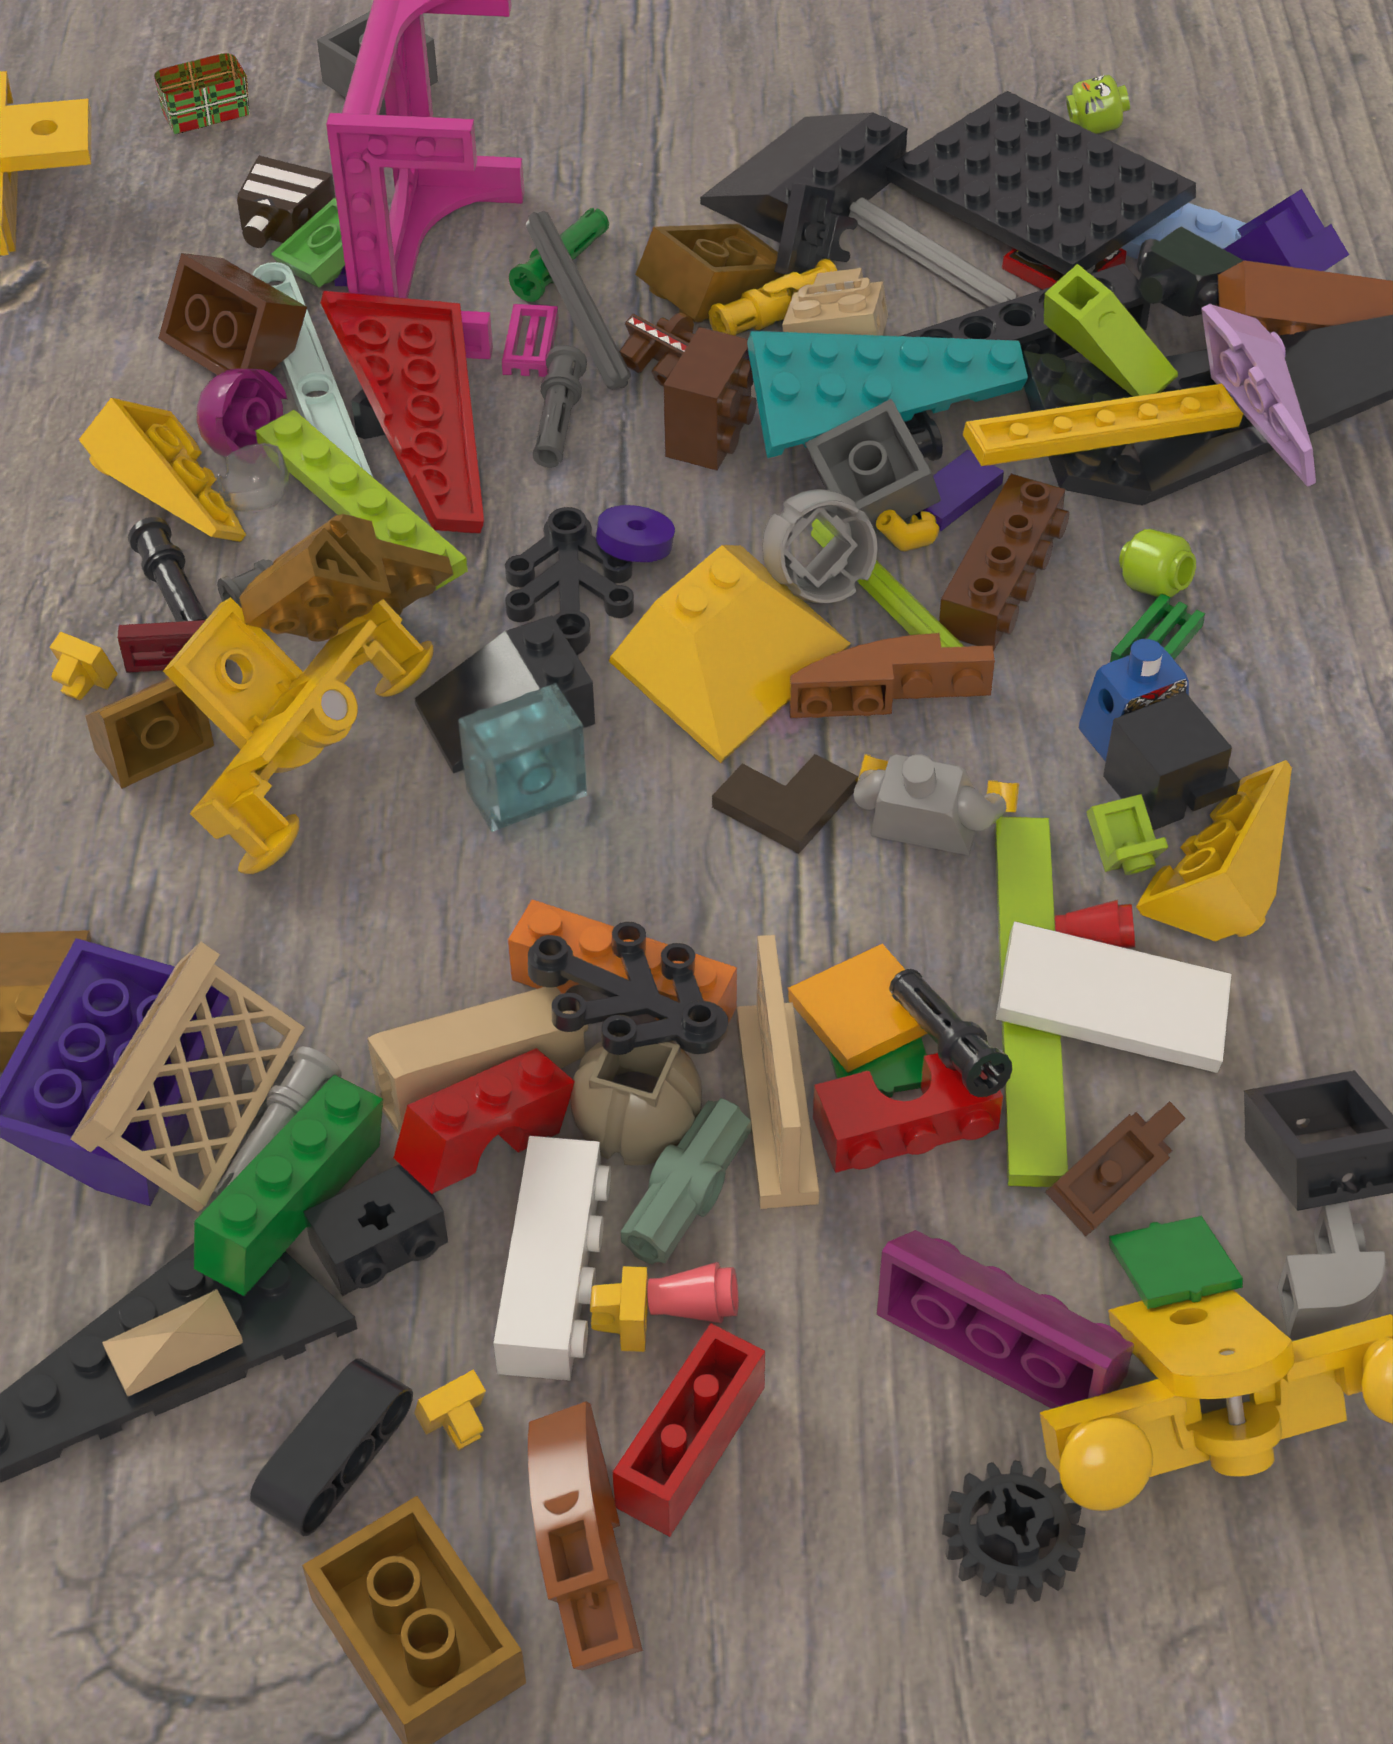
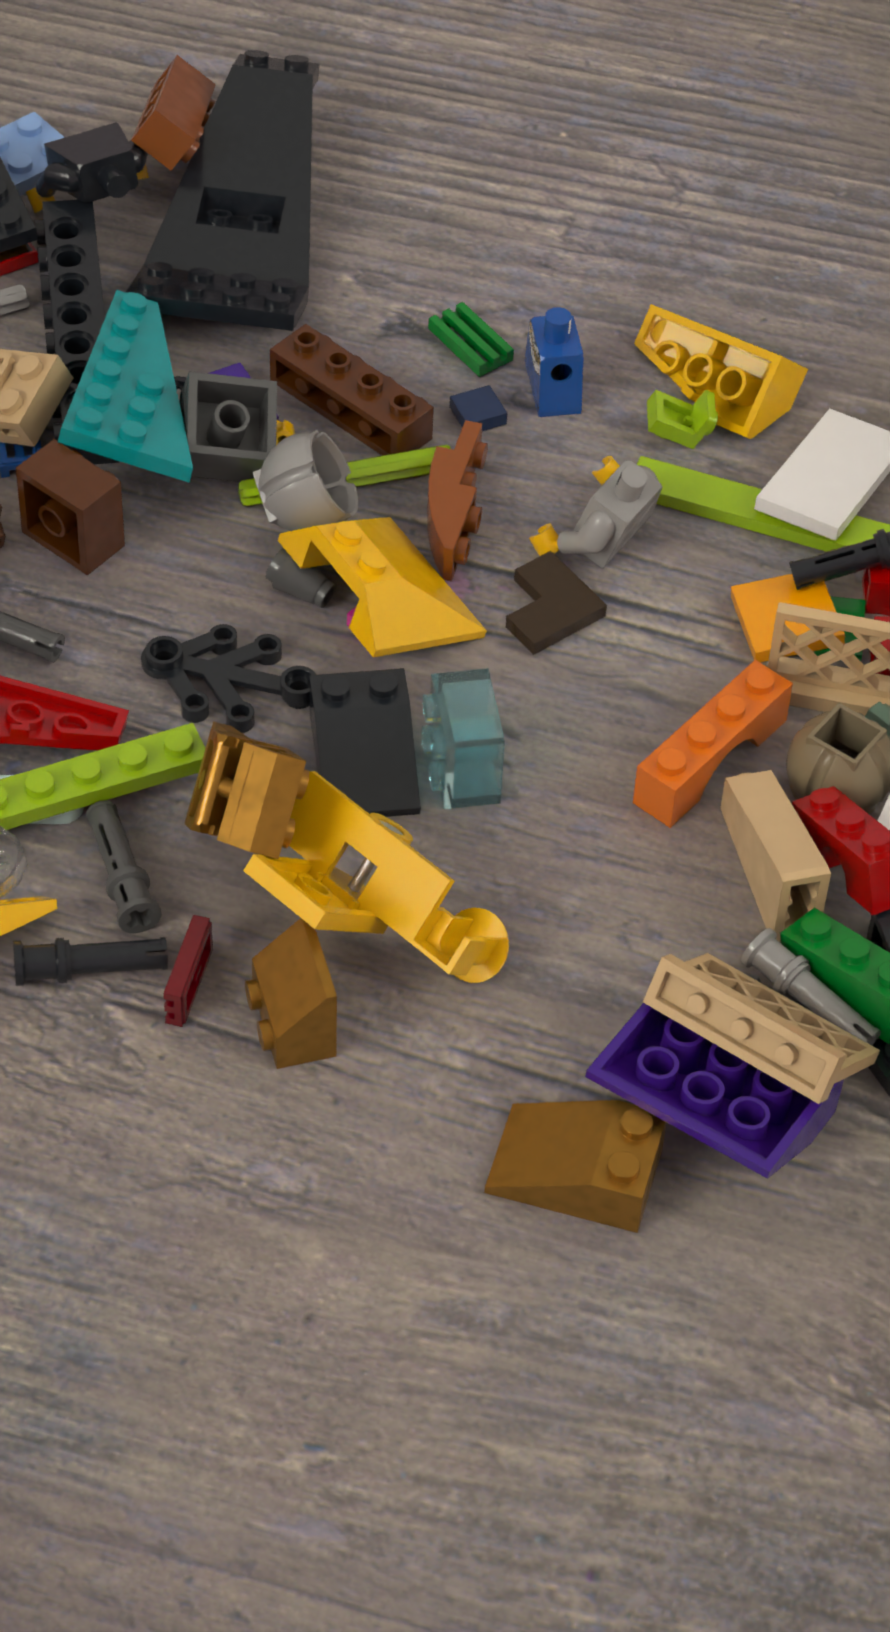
camera: 75 degrees left, 0 degrees up
(80, 666) = (181, 1047): yellow tile -> none
(635, 533) = (196, 612): dark purple piece -> none
(691, 1021) = (816, 688): black plant -> none
(1050, 671) = (479, 406): none -> dark blue tile
(1100, 923) = (763, 458): red cone -> none
(1101, 424) = (252, 275): yellow tile -> none
(1106, 333) = (142, 234): lime slope -> none
(1157, 563) = (399, 307): lime head -> none
(1170, 759) = (623, 365): black plate -> none
(1256, 376) = (270, 167): lavender wedge -> none
(1289, 237) = (85, 98): dark purple plate -> none

